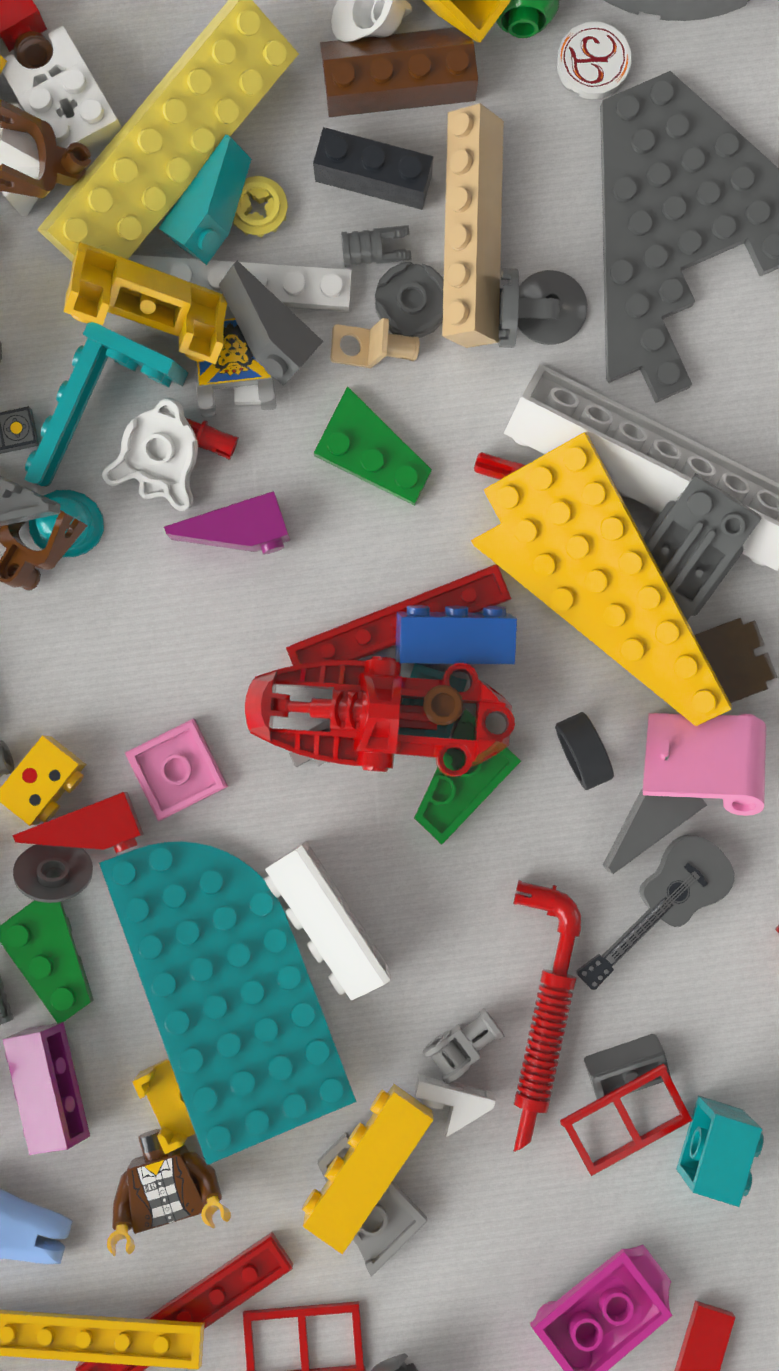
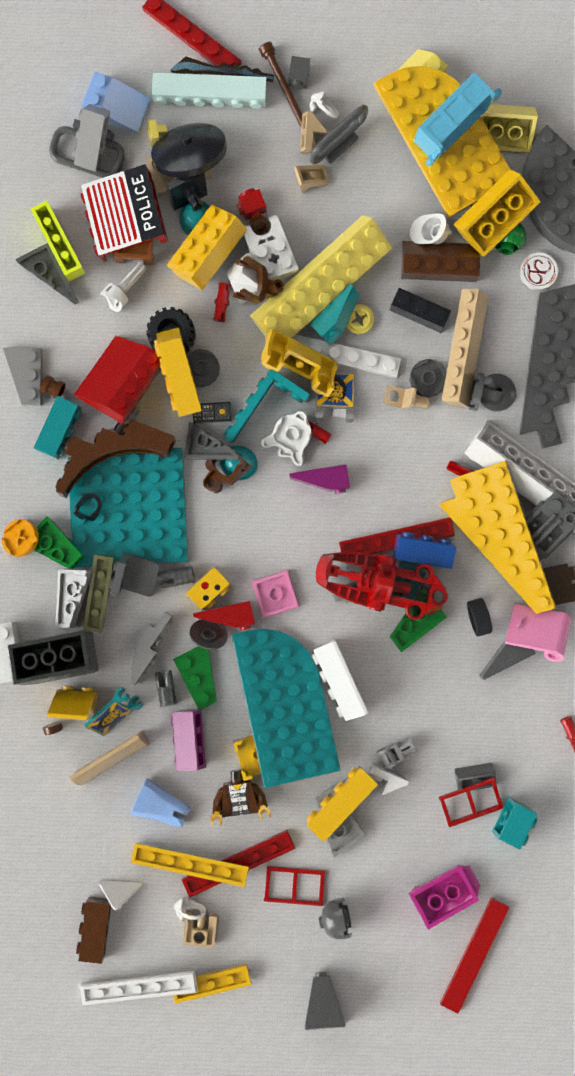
camera: 10 degrees right, 0 degrees up
(269, 327) = (356, 383): dark grey slope -> none
(367, 246) = (410, 348): dark grey hinge -> none
(371, 451) = (396, 450): green wing -> none
(443, 705) = (414, 583): reddish brown tile -> none
(553, 1002) = (443, 740): red piece -> none
(688, 878) = (520, 688): dark grey piece -> none

